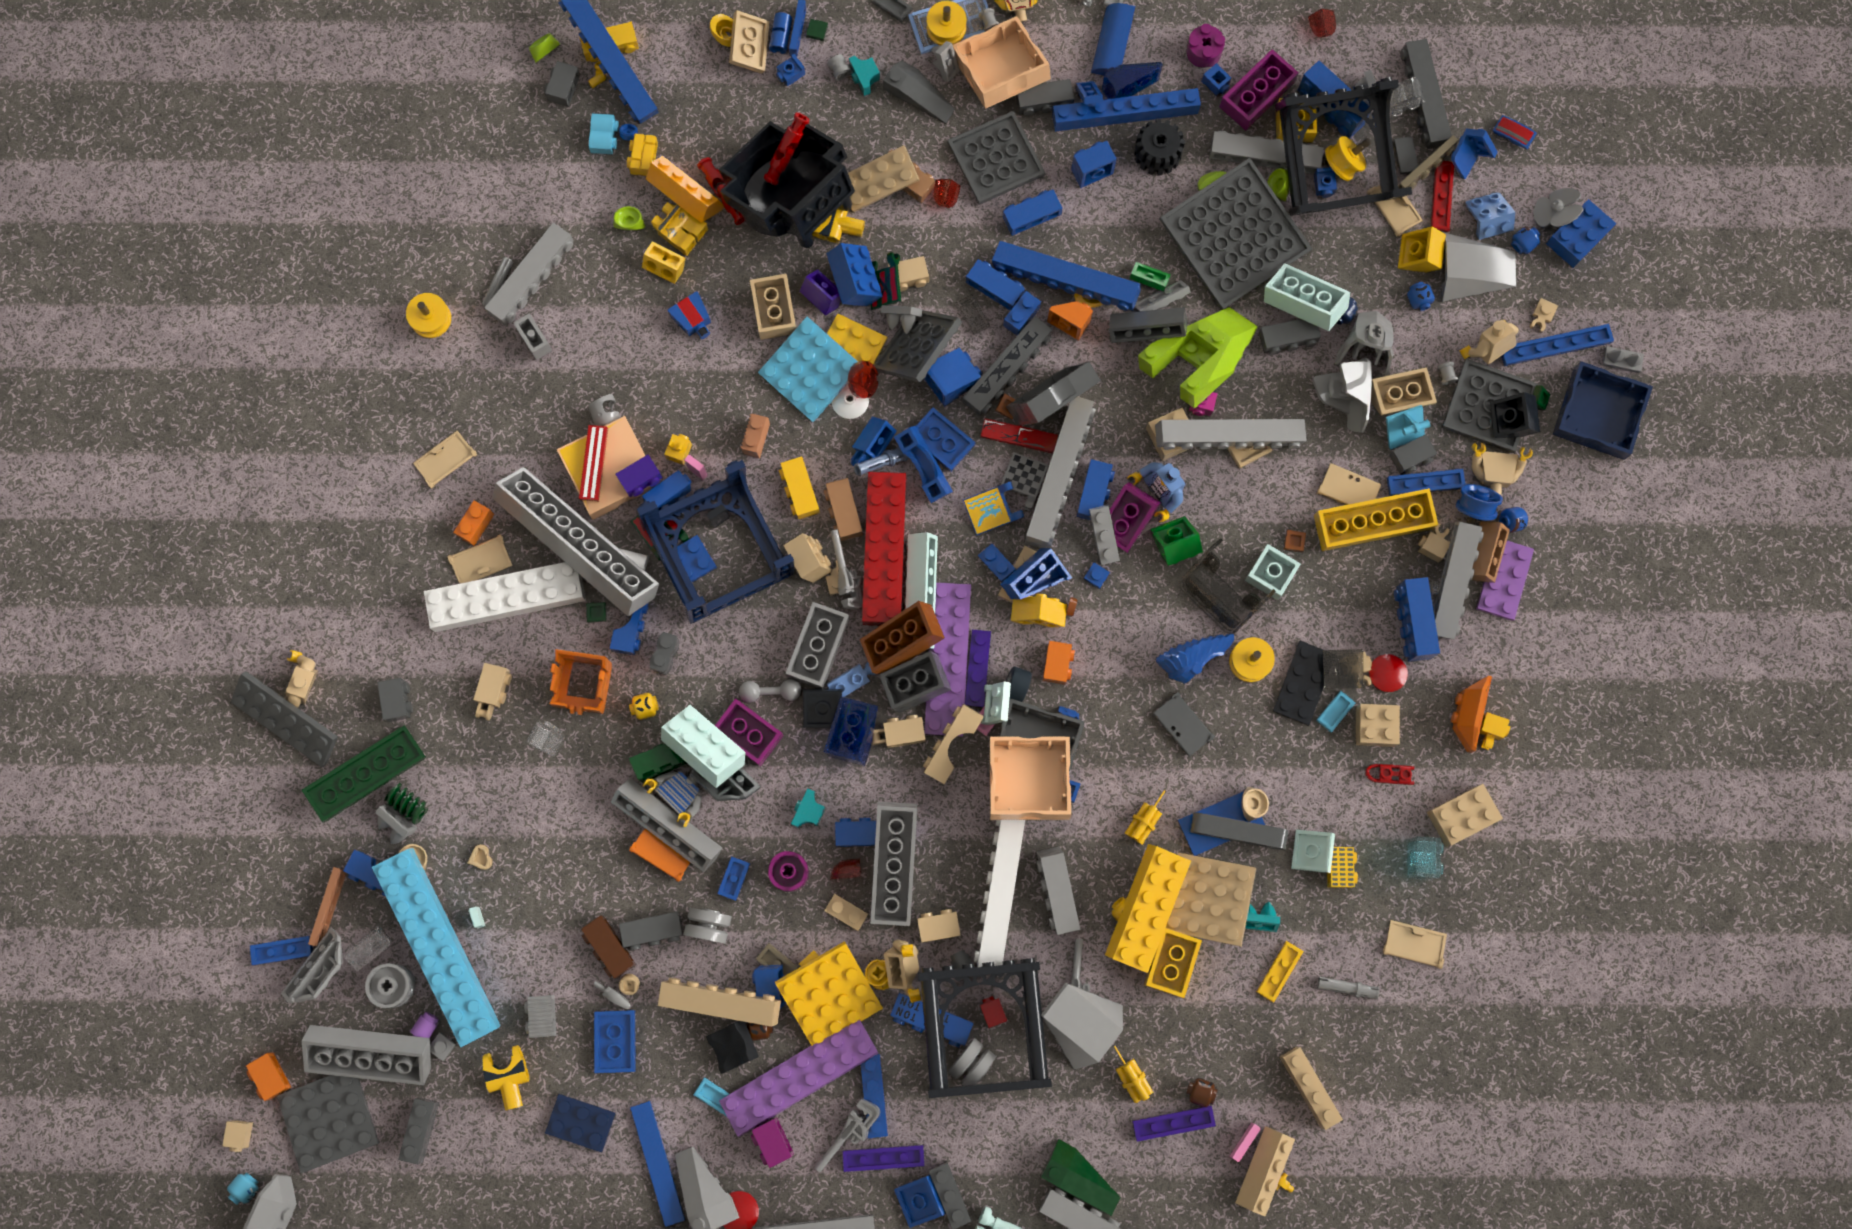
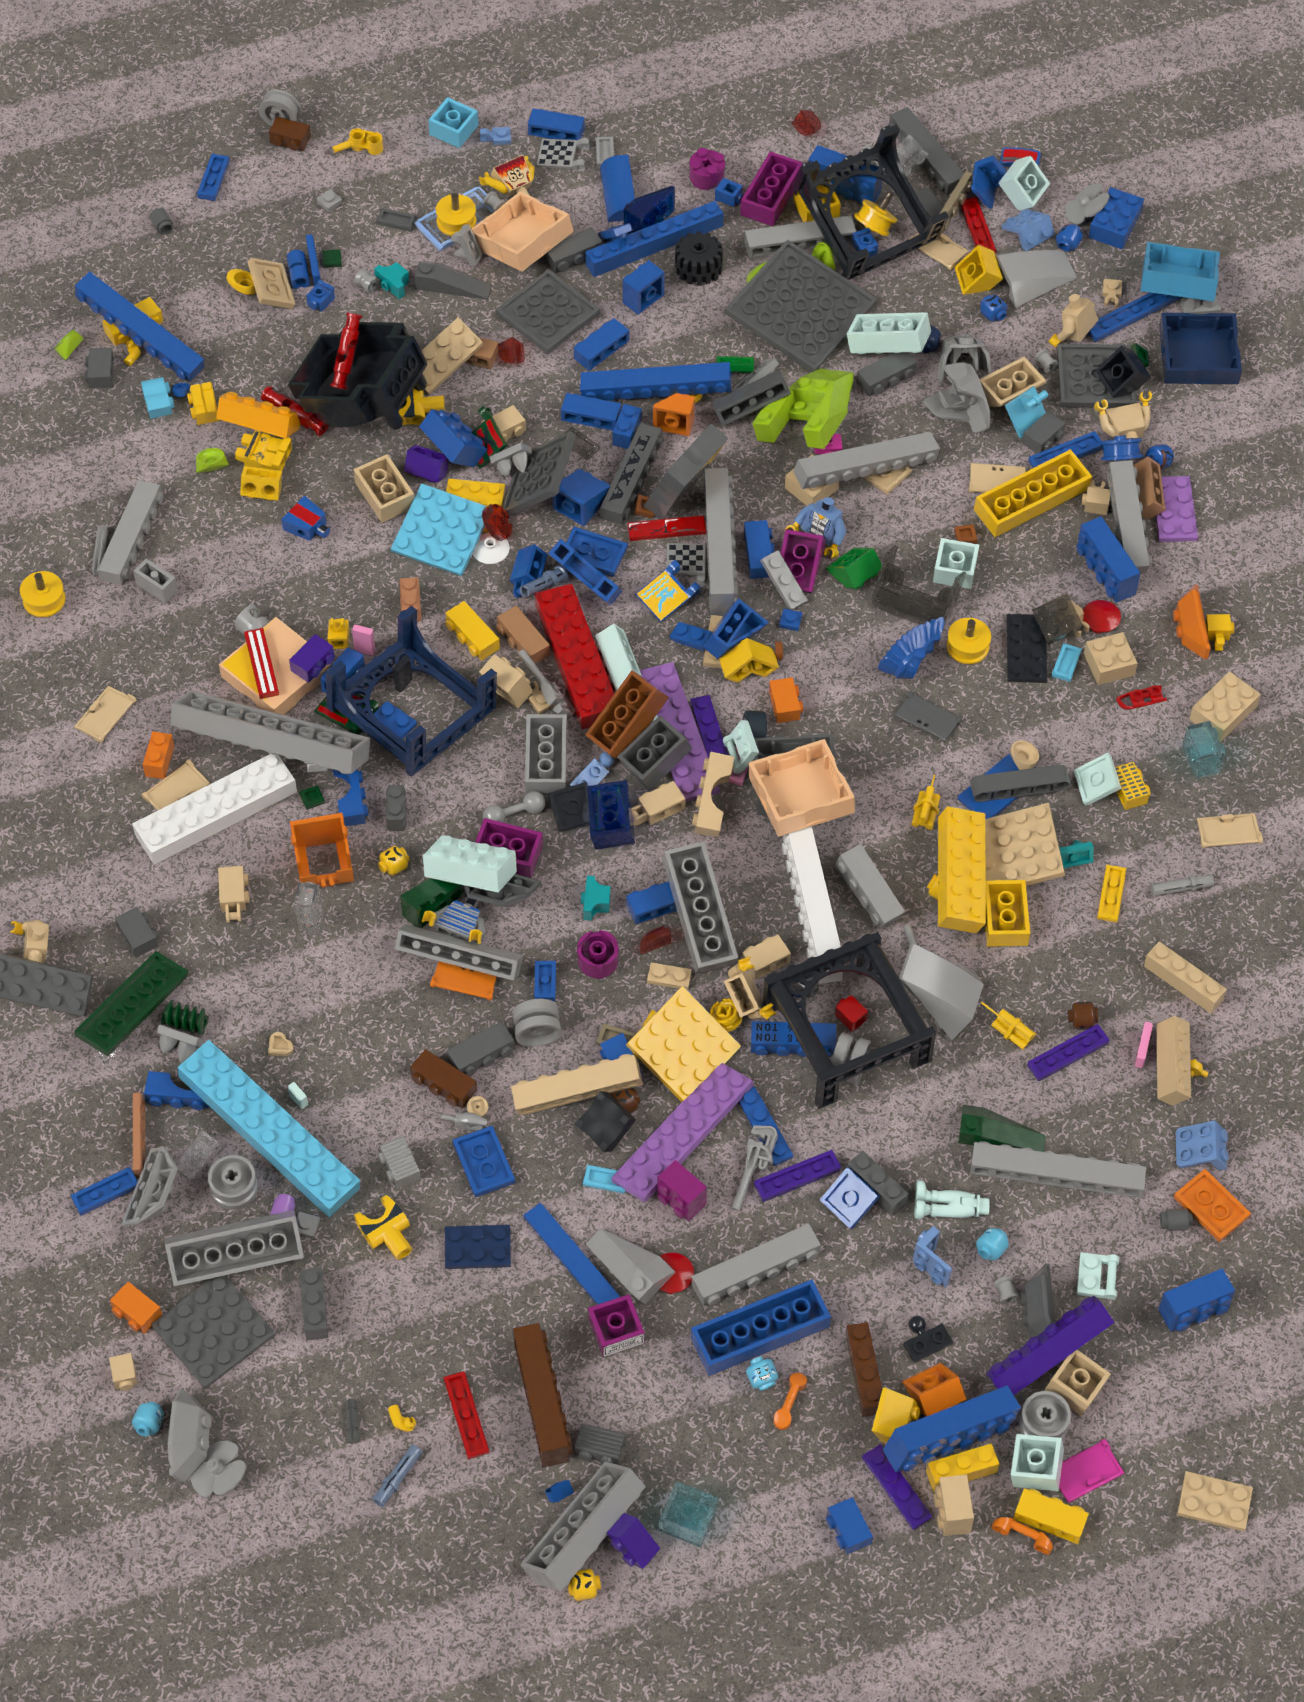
camera: 20 degrees left, 20 degrees down
(1505, 166) = (1024, 183): none -> light aqua brick
(1617, 321) = (1180, 271): none -> dark azure tile

